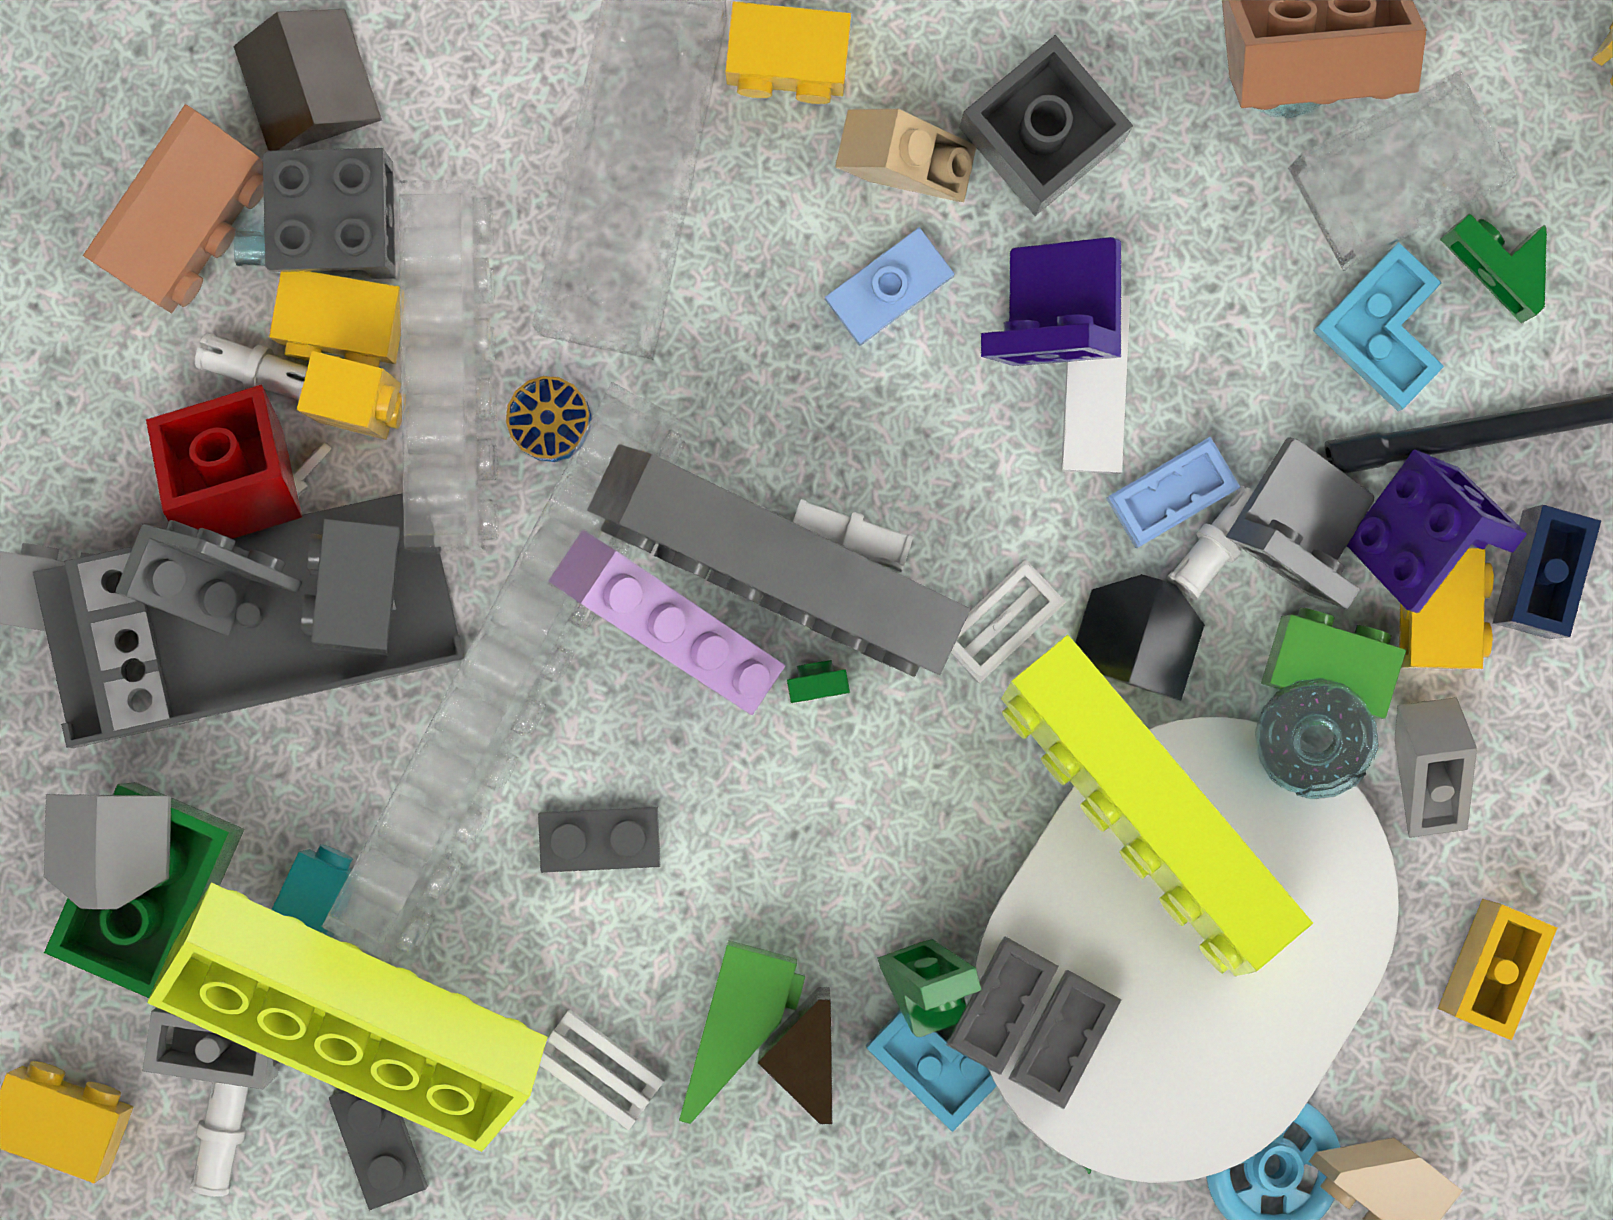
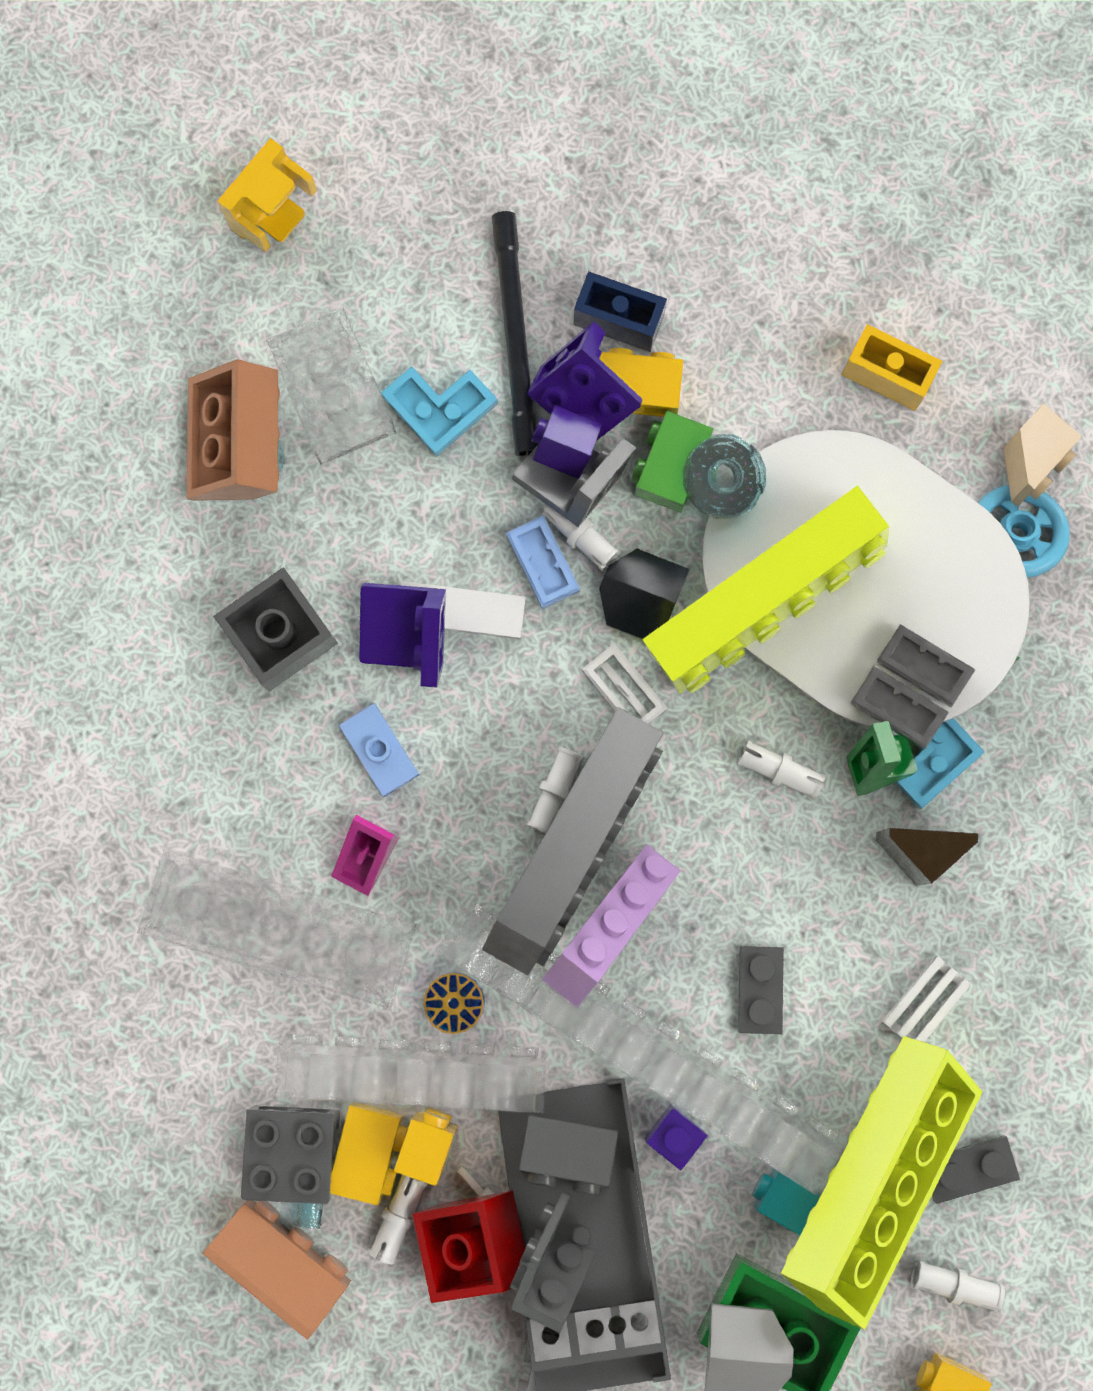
camera: 80 degrees left, 5 degrees down
(203, 1055) = (902, 1294): light grey brick -> none
(306, 78) = (187, 1165): slope -> none
(388, 734) = (675, 1137): none -> dark purple brick
(743, 278) = (363, 855): none -> dark pink slope
(743, 1013) = (892, 894): bright green slope -> none
(787, 51) = (204, 808): yellow brick -> none
(817, 681) = (659, 822): green plate -> none
(905, 153) = (285, 730): tan slope -> none
(906, 848) = (781, 769): none -> white pin
(1348, 508) = (565, 441): none -> dark purple brick
(1435, 766) = (747, 398): light grey slope -> none
(1512, 278) = (411, 317): green slope -> none

